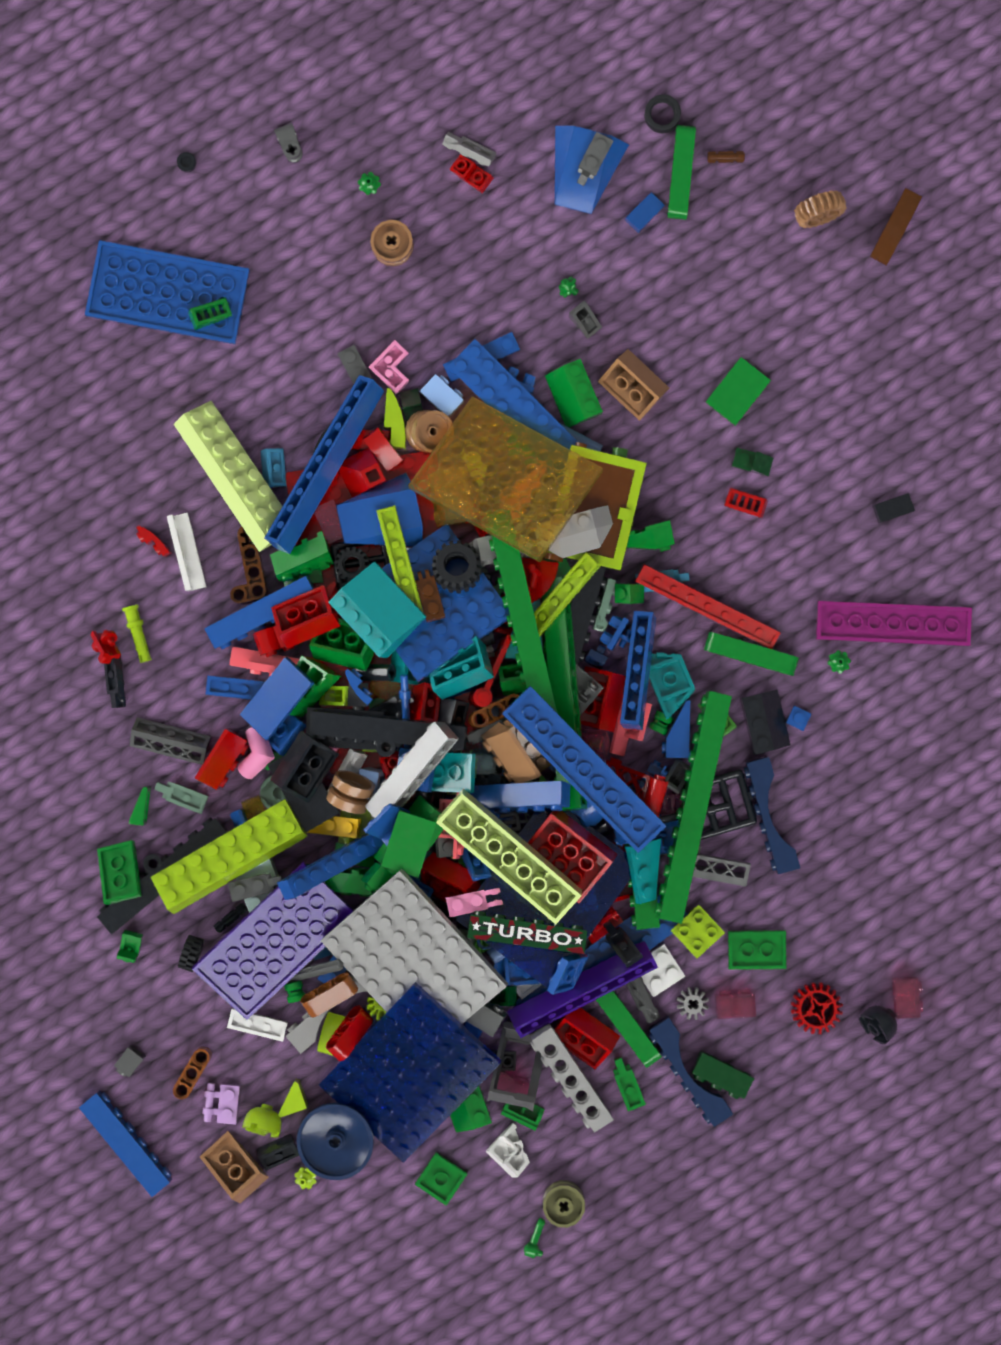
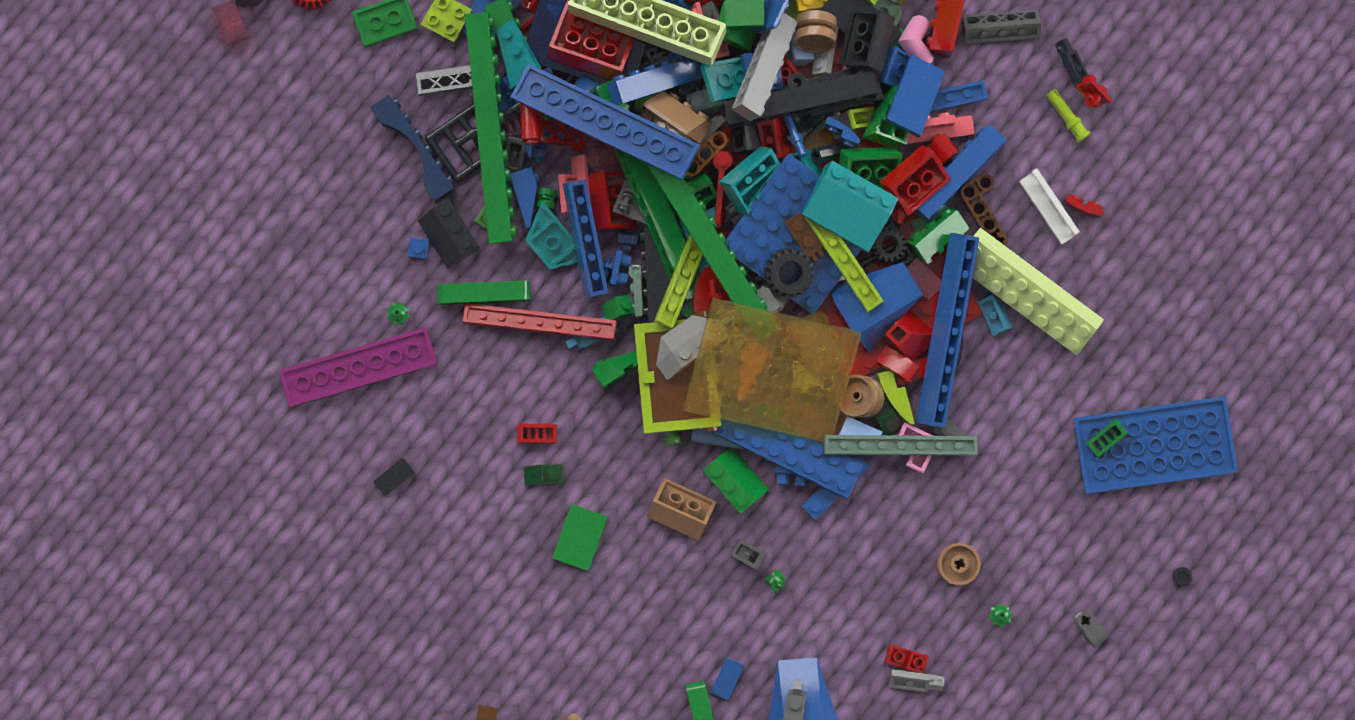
camera: 165 degrees right, 5 degrees down
(407, 372) = (900, 445): none -> sand green tile

